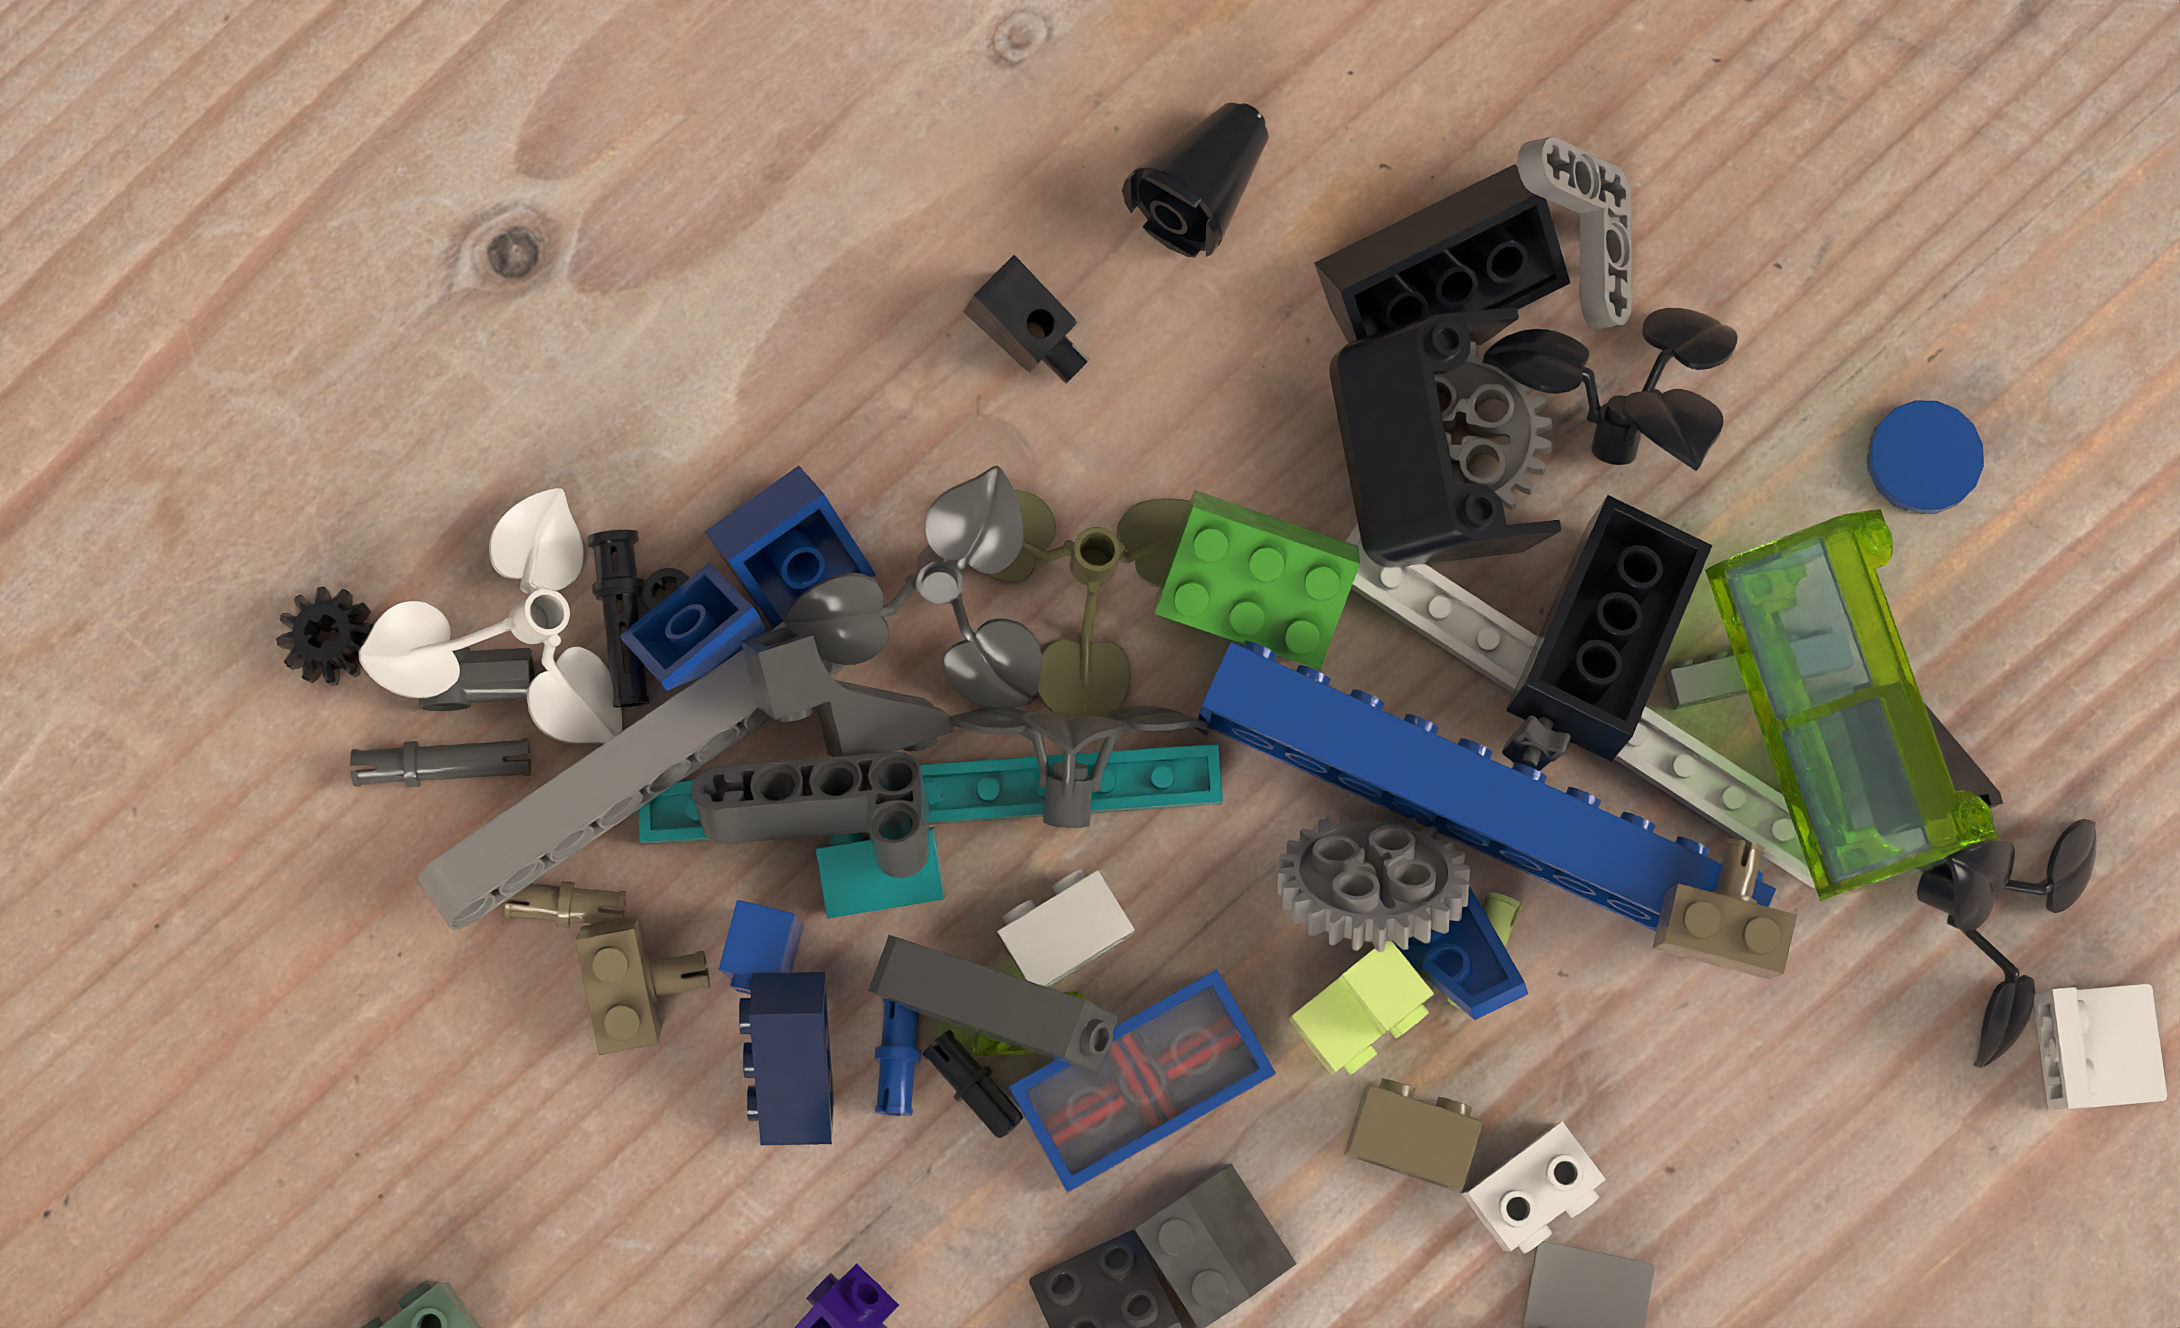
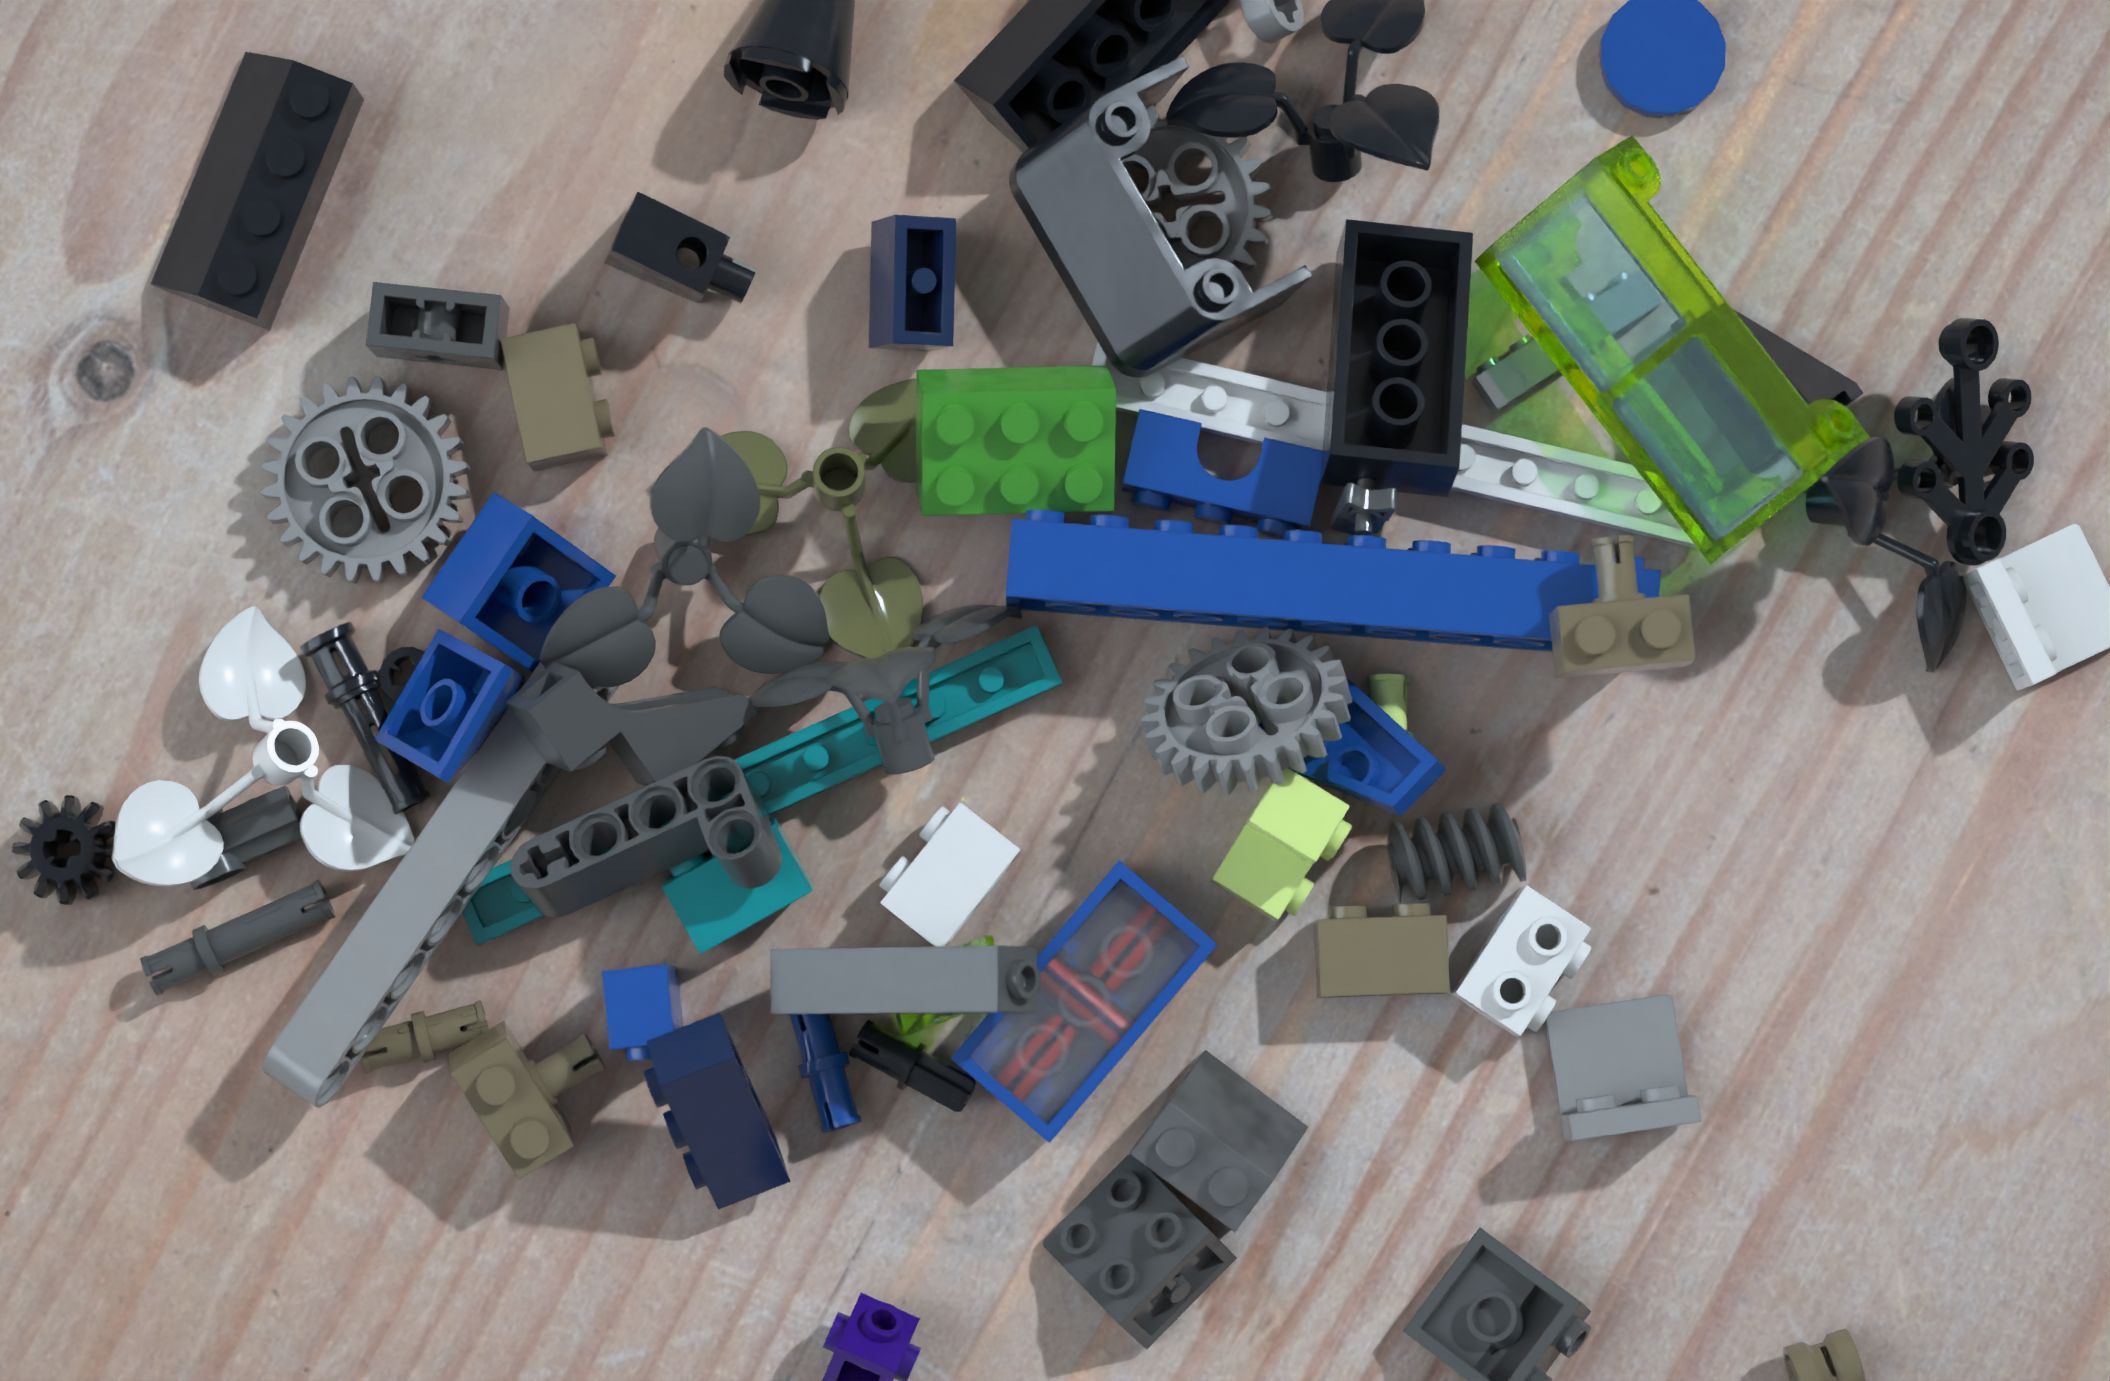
camera: 20 degrees left, 5 degrees up
(645, 421) = (313, 502): none -> light grey gear
(699, 146) = (259, 188): none -> black slope
(804, 310) = (437, 325): none -> dark grey brick
(881, 406) = (556, 396): none -> dark tan brick
(1217, 418) = (912, 283): none -> dark blue brick
(1377, 655) = (1167, 470): none -> blue arch
(1510, 1069) = (1455, 851): none -> dark grey piece
(2063, 946) = (1974, 520): none -> black plant

